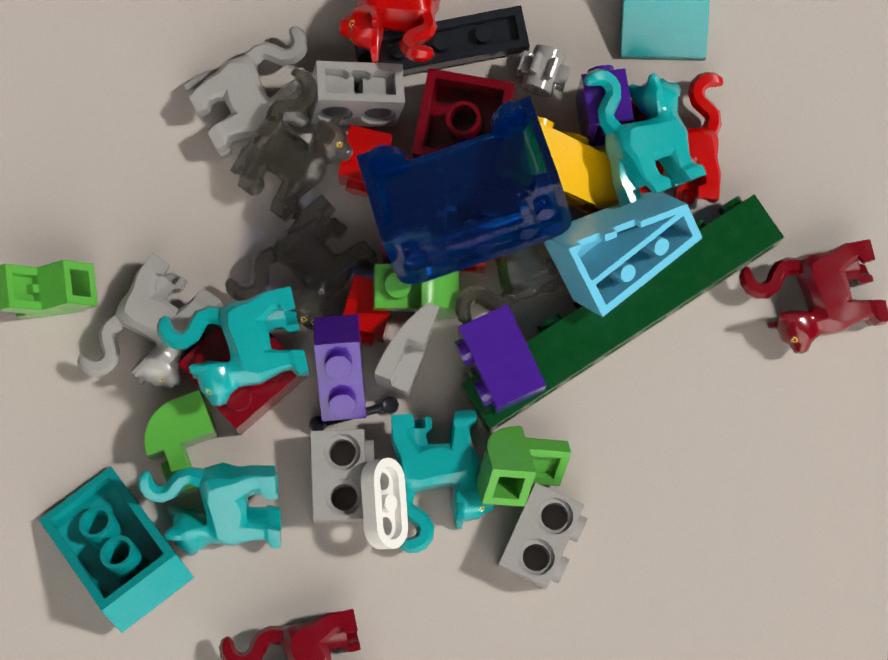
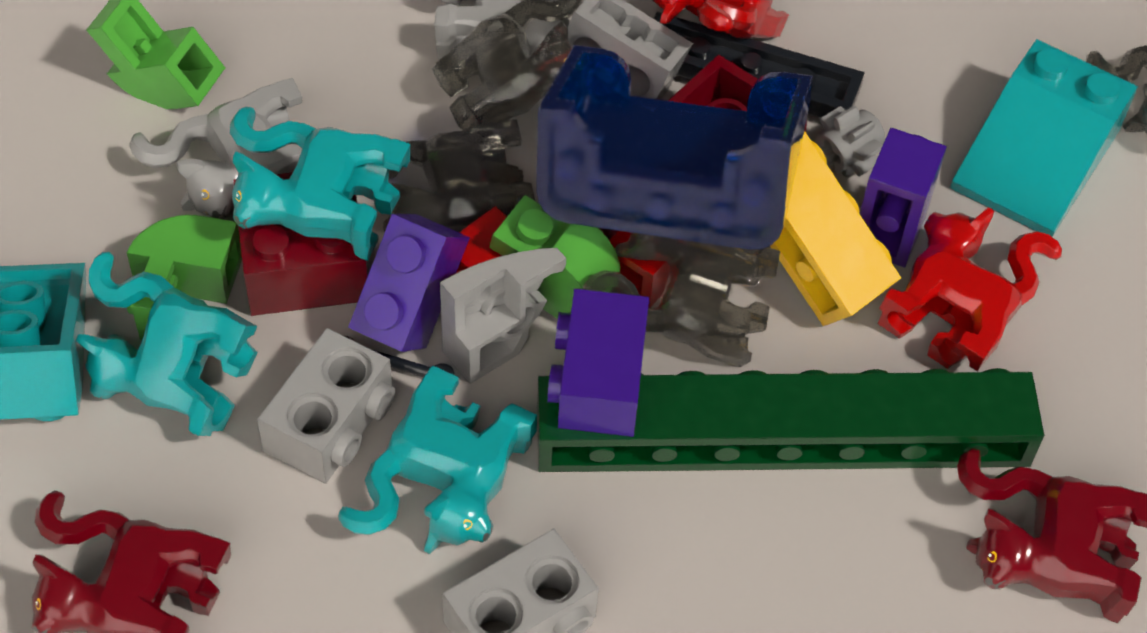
camera: 30 degrees right, 25 degrees down
(384, 503) = (351, 449): white plate -> none
(517, 462) = (541, 493): bright green brick -> none
(621, 249) = (822, 326): medium azure wedge -> none
(638, 145) = (925, 233): teal animal -> none

